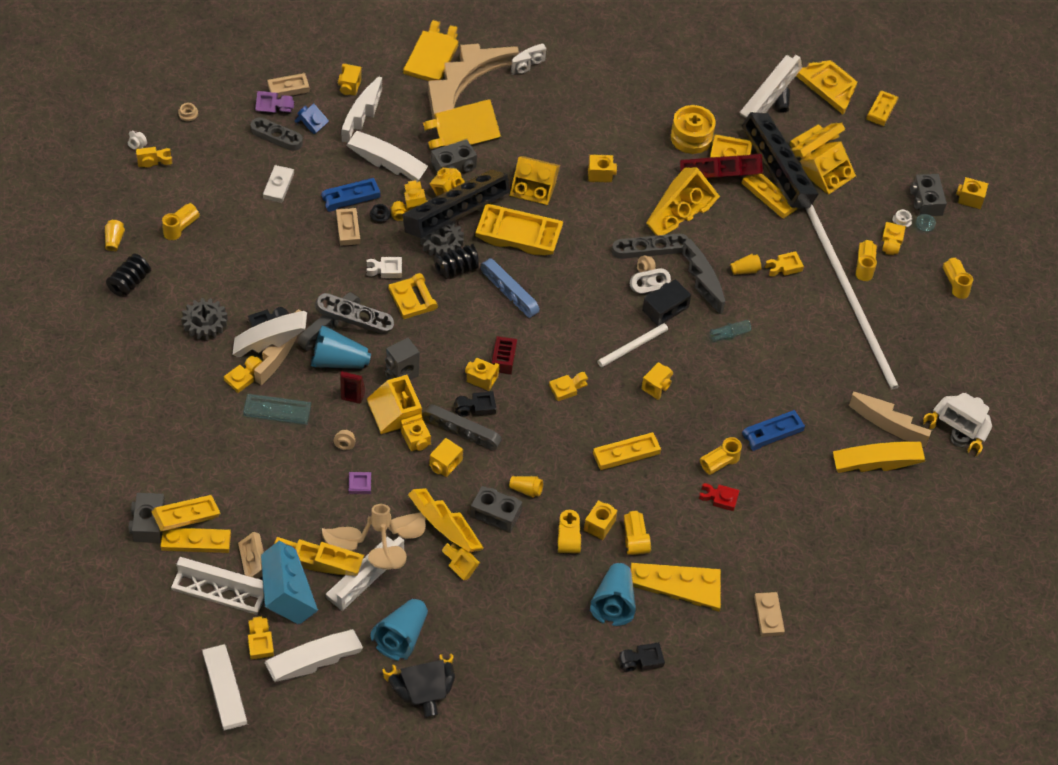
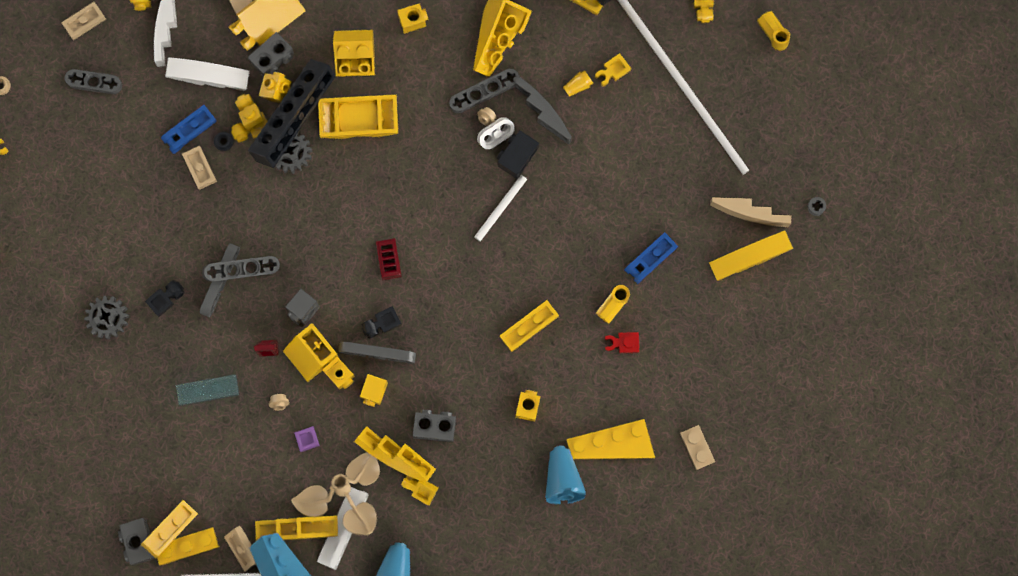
camera: 15 degrees left, 25 degrees up
(128, 275) = (19, 294): black piece -> none
(175, 222) = (43, 215): yellow piece -> none
(241, 378) = (162, 367): yellow plate -> none
(268, 102) = (72, 48): medium lavender plate -> none
(272, 358) = (186, 317): tan slope -> none
(274, 331) = (174, 321): white slope -> none
(278, 184) = (116, 139): white plate -> none
(312, 118) = (120, 52): bracket -> none
(338, 351) = (240, 313): dark azure cone -> none
(388, 267) = (253, 201): white plate -> none
(407, 300) = (280, 228): yellow plate -> none
(456, 260) = (313, 174): black piece -> none
(482, 373) = (383, 289): yellow brick -> none
(509, 287) = (370, 185): medium blue beam -> none
(527, 485) = (453, 392): yellow cone -> none
(566, 387) = (453, 275): yellow plate -> none
(569, 534) = (506, 433): yellow piece -> none
(636, 538) = (564, 413): yellow piece -> none
(648, 656) = (607, 526): black plate -> none
(657, 380) = (535, 241): yellow brick -> none
(731, 330) = (584, 162): clear light blue axle -> none
(866, 260) = (686, 38): yellow piece -> none
(965, 415) = (816, 186): white torso -> none

